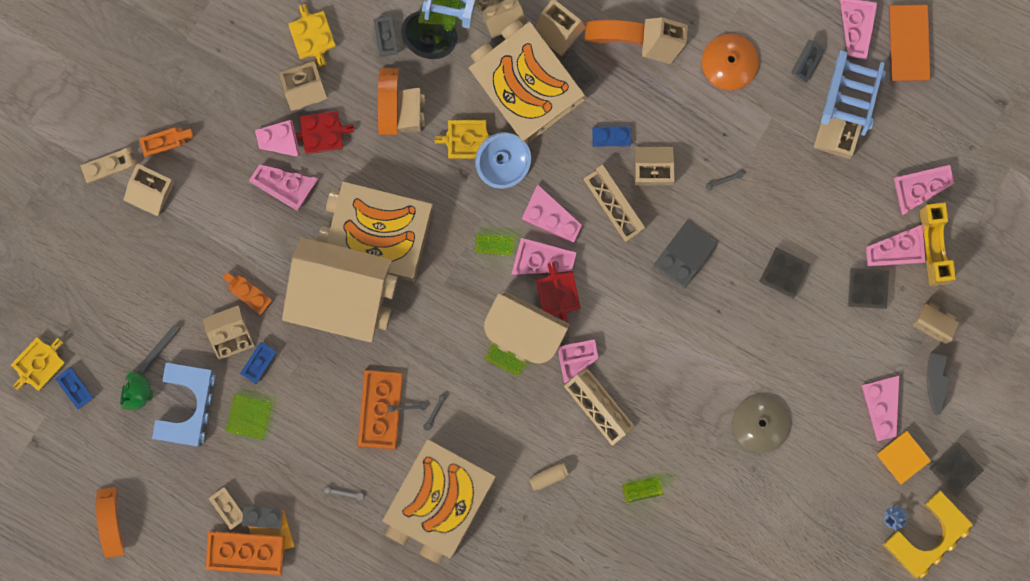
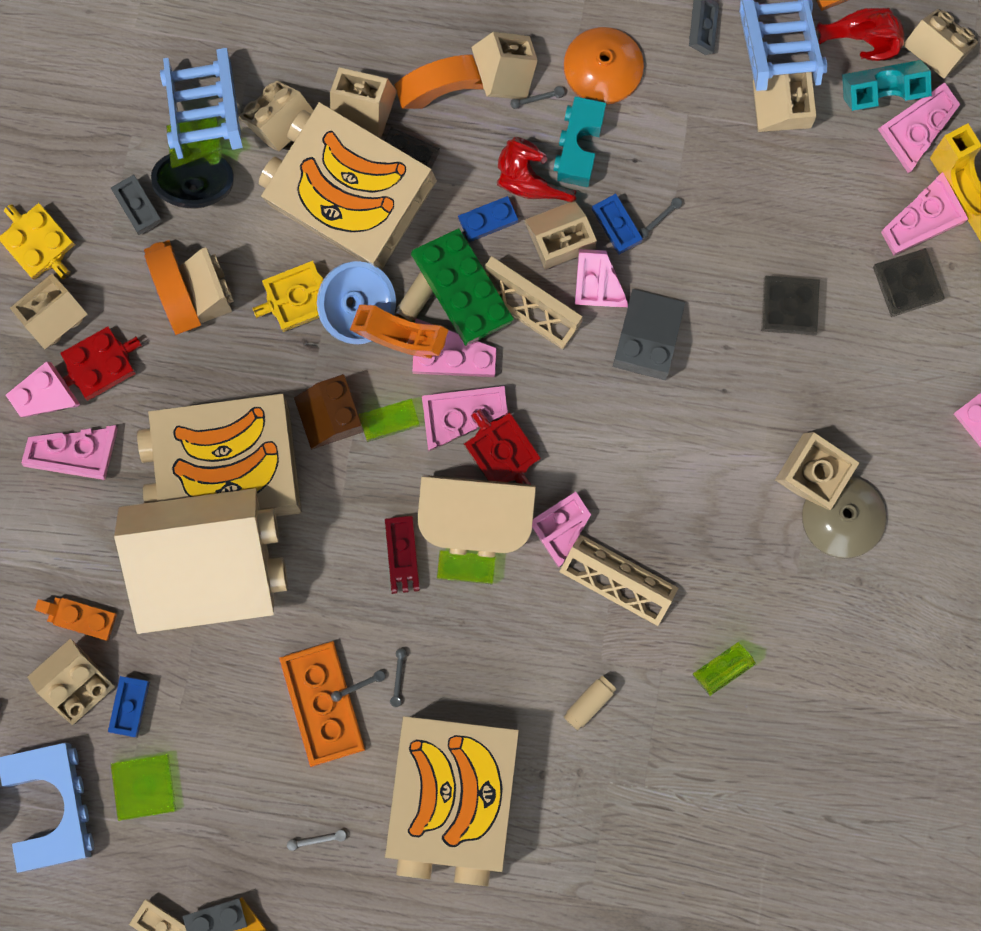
camera: 25 degrees left, 5 degrees down
(457, 224) = (328, 412): none -> reddish brown slope
(468, 334) = (402, 553): none -> dark red hinge
(522, 191) = (398, 333): none -> orange arch
(544, 170) = (414, 299): none -> tan piece
(575, 176) = (462, 286): none -> green plate
(643, 116) = (519, 176): none -> red hair
(665, 207) = (598, 281): none -> bright pink wing
(693, 68) = (558, 93): none -> dark grey hinge
(694, 173) = (617, 224): none -> blue plate
(701, 94) = (584, 119): none -> teal arch
(754, 388) = (817, 470): none -> tan slope
(917, 105) = (872, 25): none -> red hair
(922, 151) = (905, 80): none -> teal arch
(960, 136) = (941, 42): none -> tan slope

